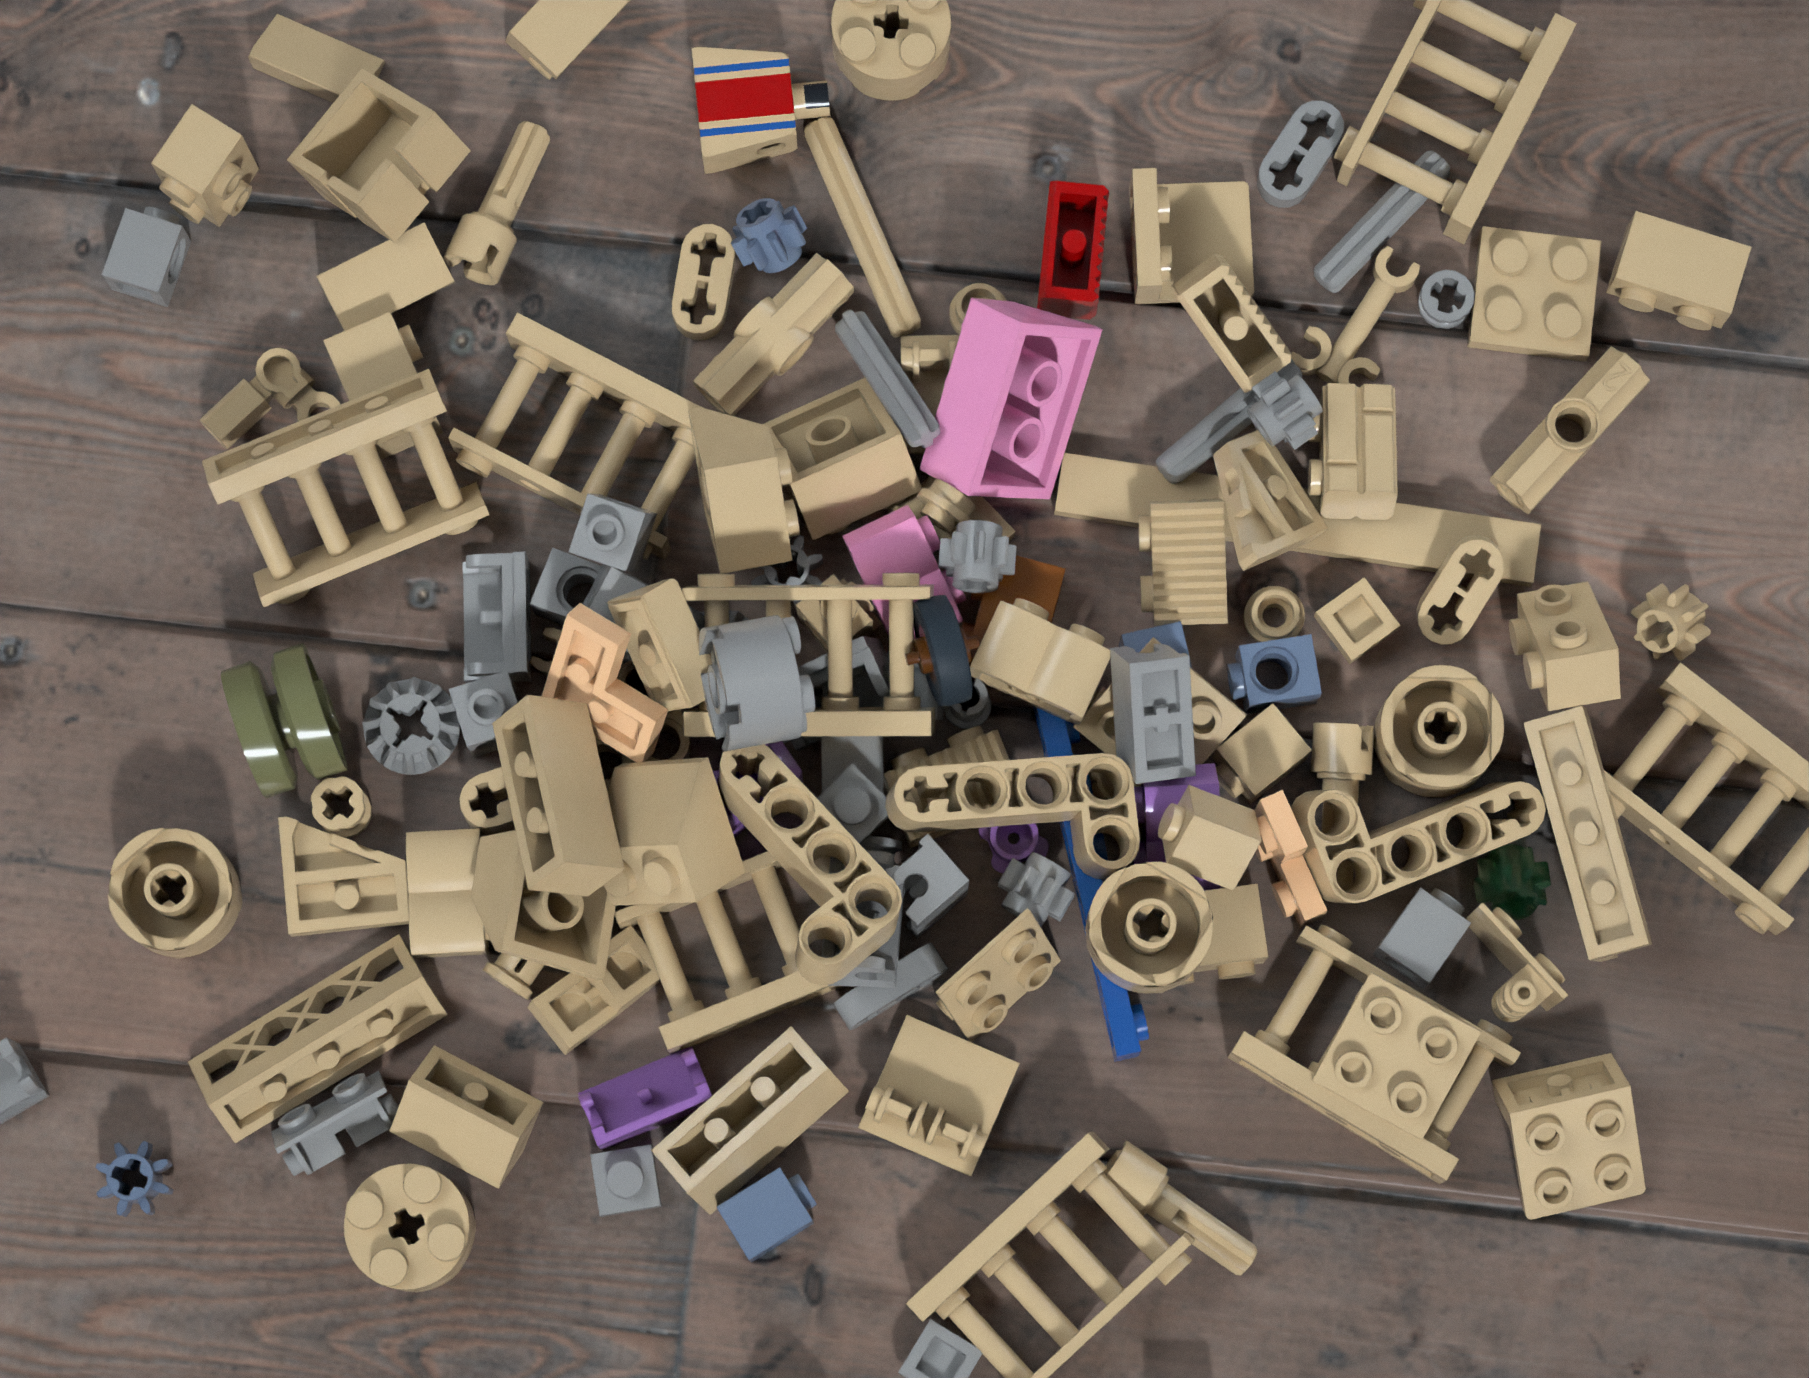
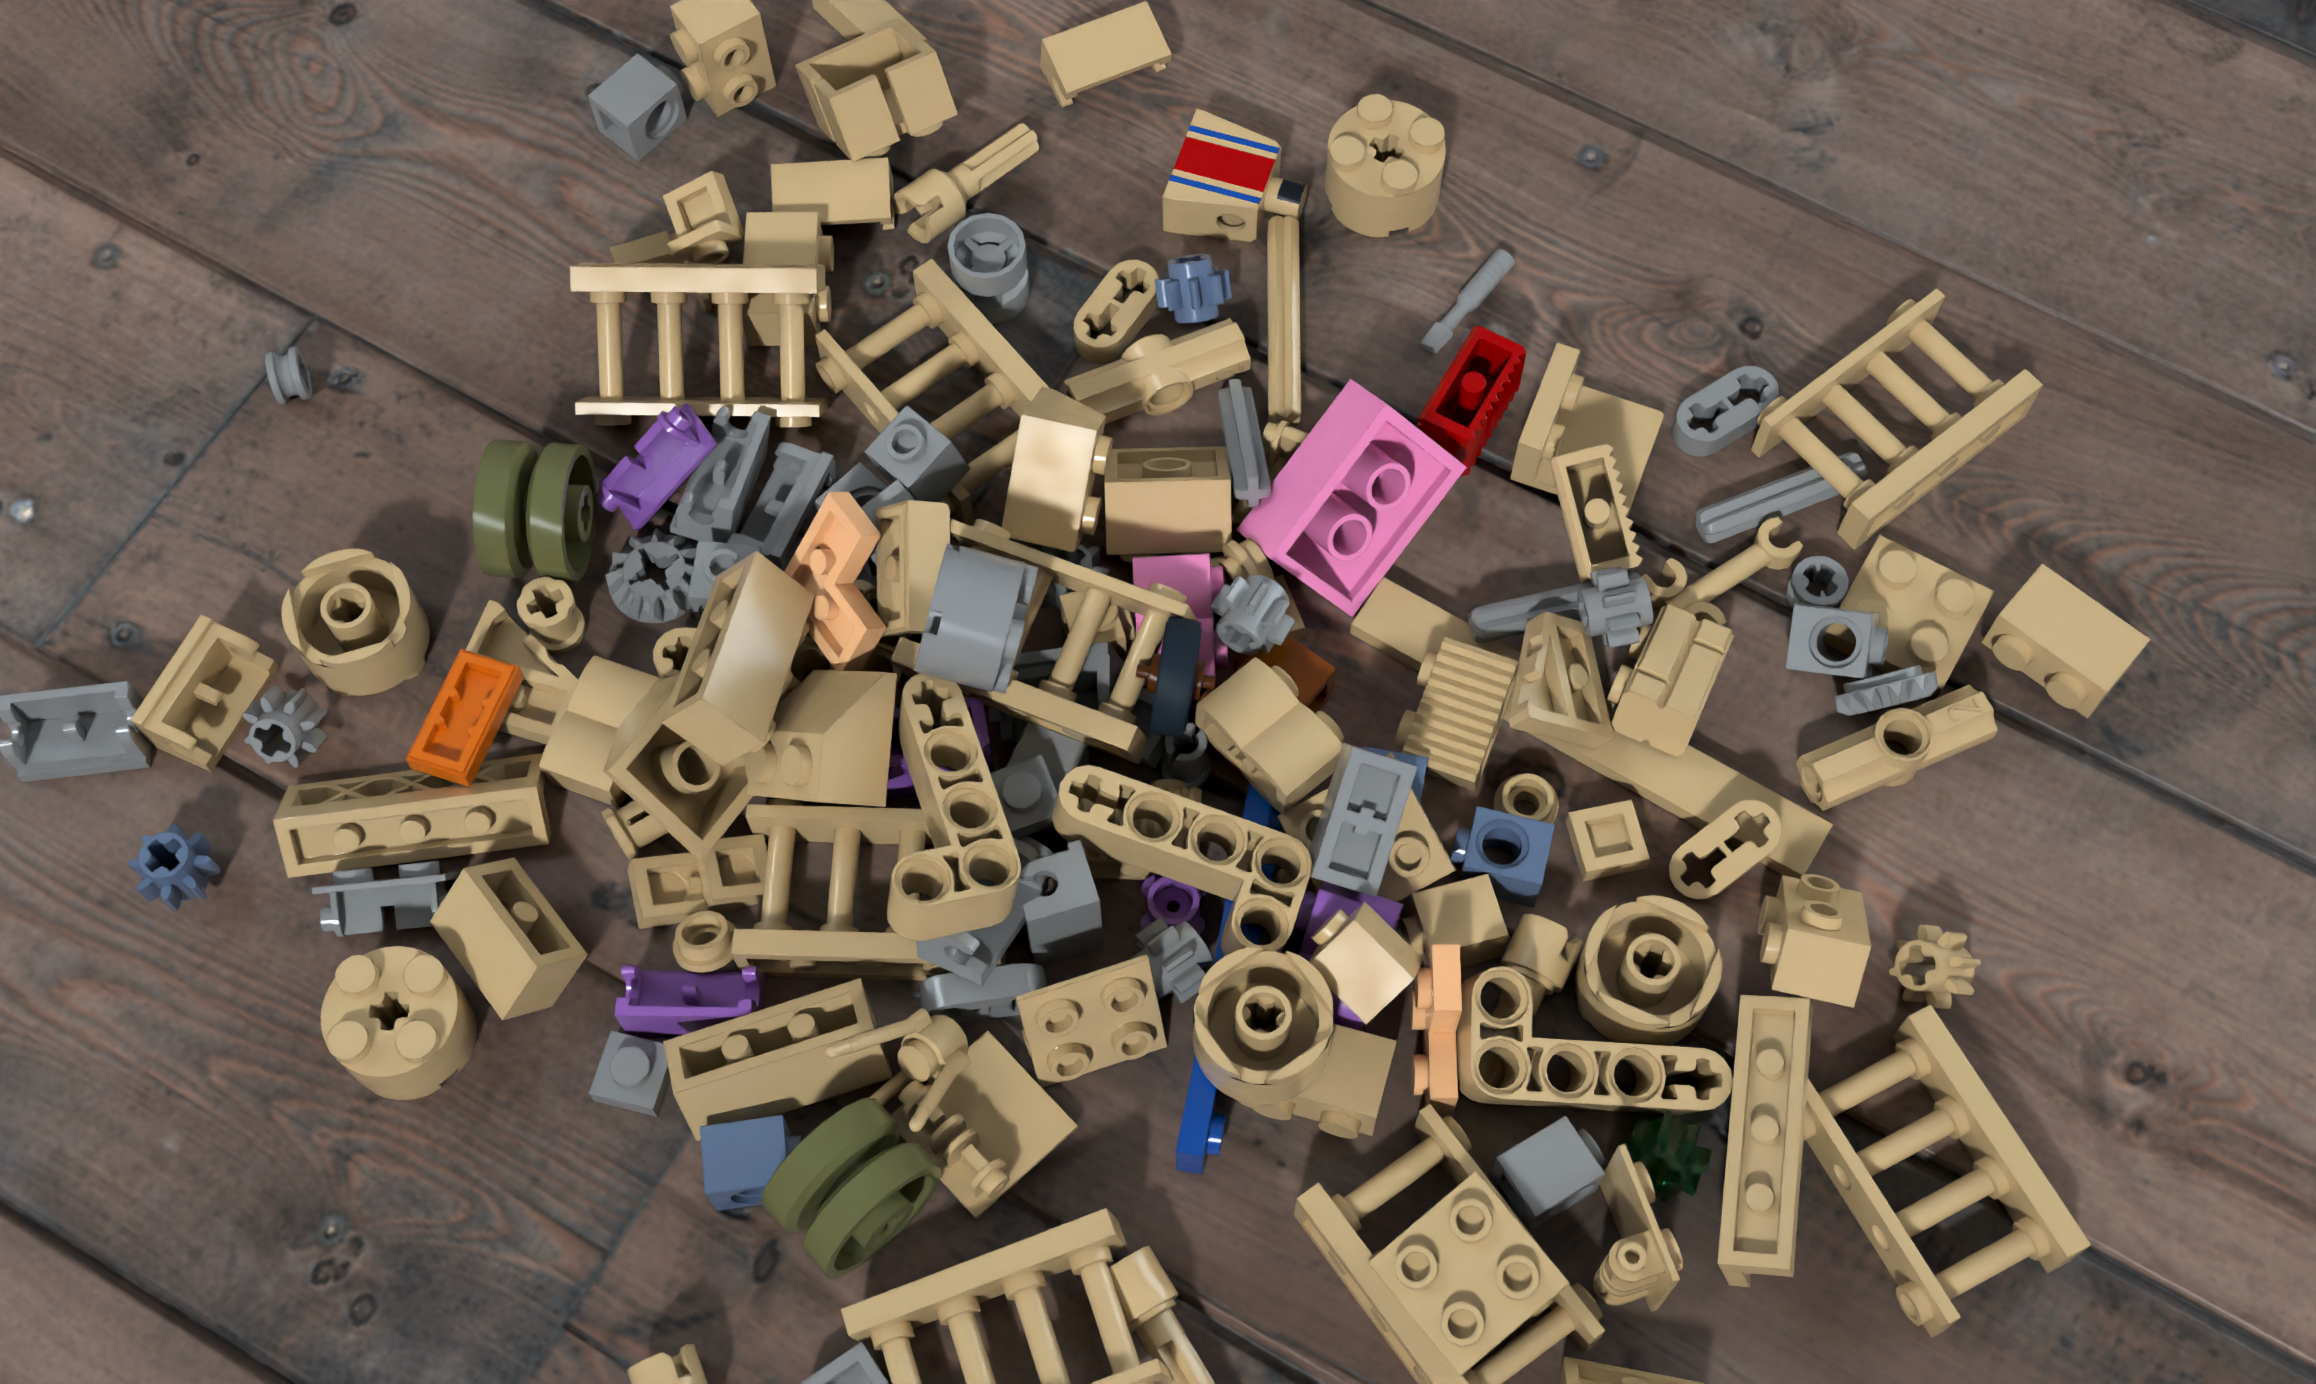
camera: 25 degrees right, 15 degrees down
(69, 1012) = (204, 693): none -> tan hinge
(161, 1012) = (285, 726): none -> light grey gear
(286, 364) = (703, 220): none -> tan bracket
(325, 940) = (465, 718): none -> orange plate
(365, 625) = (664, 462): none -> medium lavender hinge
(428, 612) = (723, 480): none -> light grey hinge
(571, 294) = (990, 265): none -> light grey wheel
(624, 1032) = (703, 942): none -> tan plate
(868, 1202) = (851, 1187): none -> olive wheel
(873, 1057) = (930, 1051): none -> tan plant
(1022, 133) = (1469, 299): none -> light grey piece
(1471, 378) = (1807, 648): none -> light grey brick
(1542, 383) = (1885, 690): none -> light grey gear

